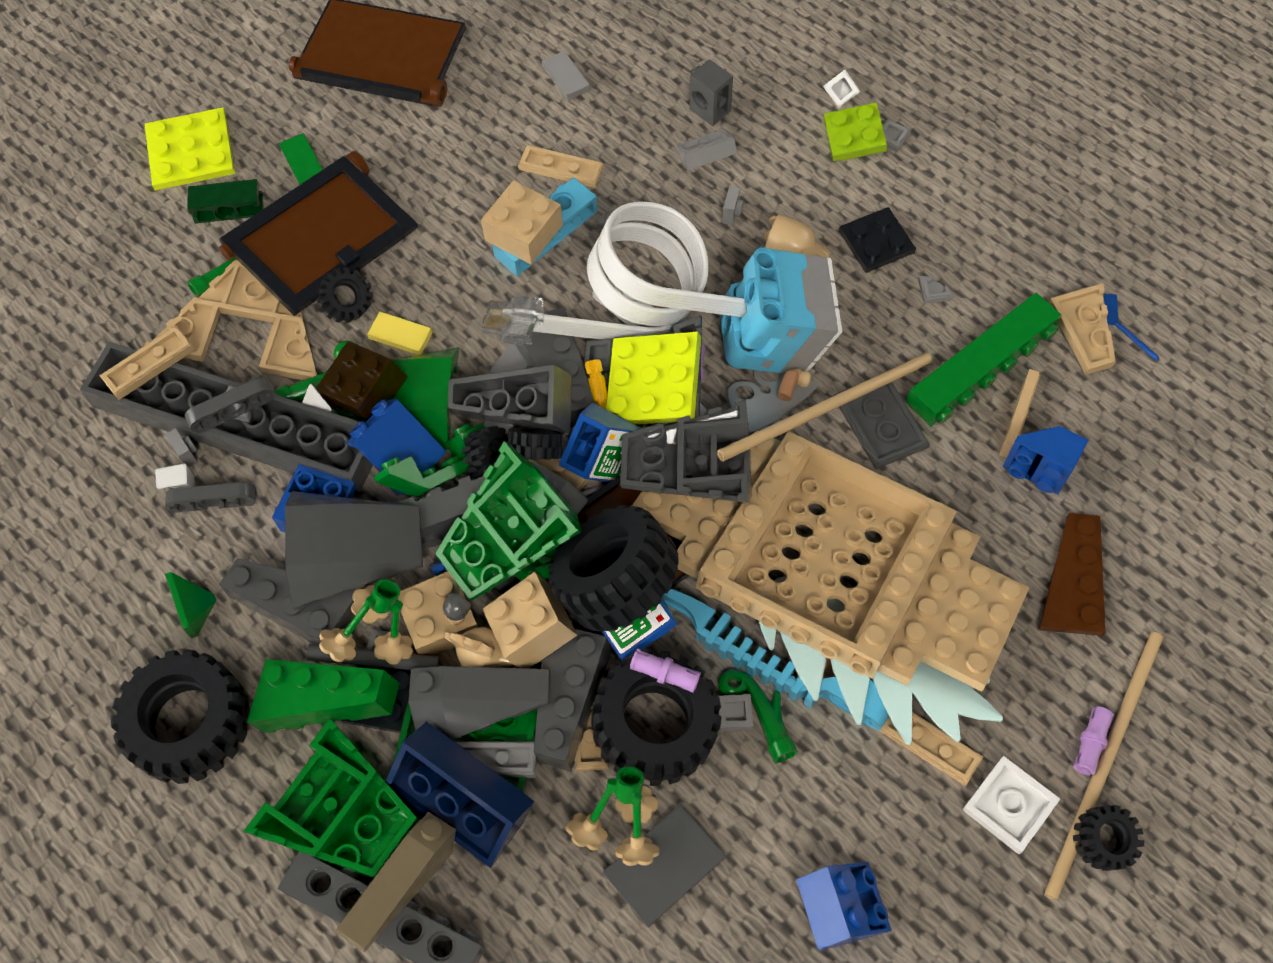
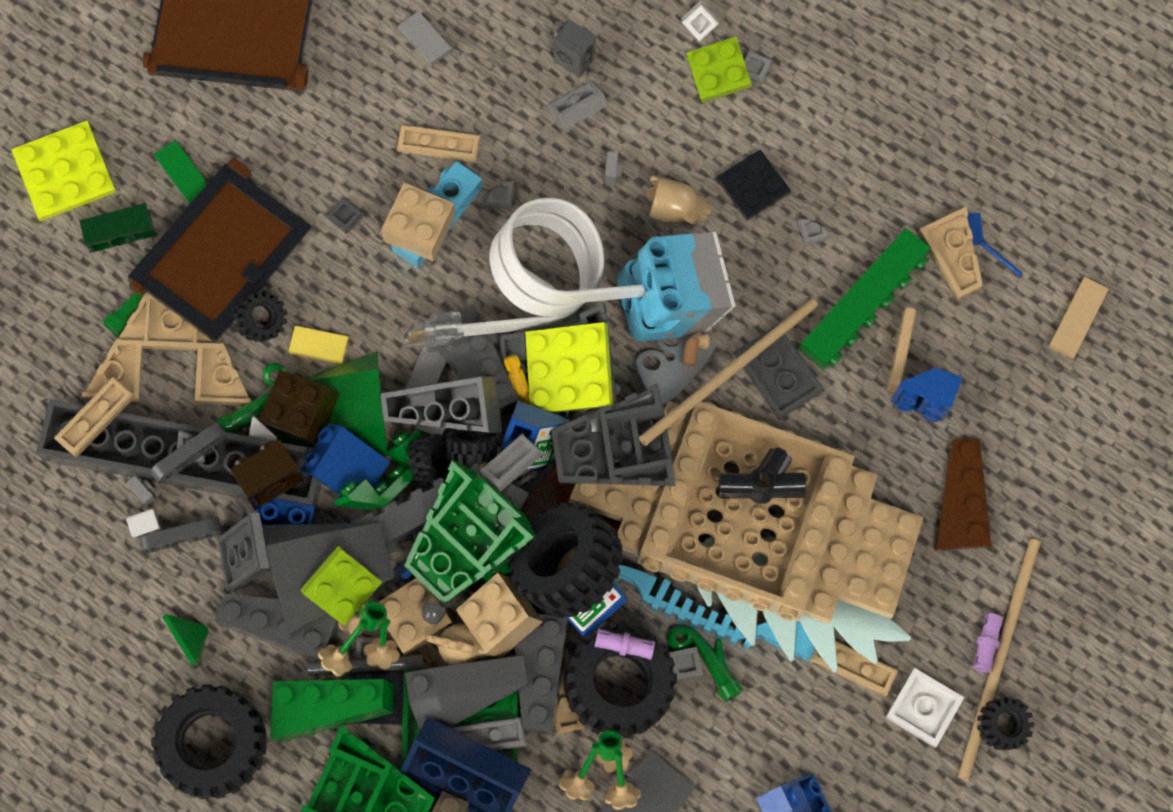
camera: 15 degrees left, 10 degrees up
(266, 517) = (243, 552): none -> dark grey tile
(305, 435) = (266, 474): none -> dark brown brick
(357, 560) = (341, 586): none -> lime plate
(453, 219) = (344, 215): none -> dark grey tile
(571, 459) = (511, 462): none -> light grey tile
(852, 519) = (770, 475): none -> black piece
(1220, 408) = (1078, 317): none -> tan tile

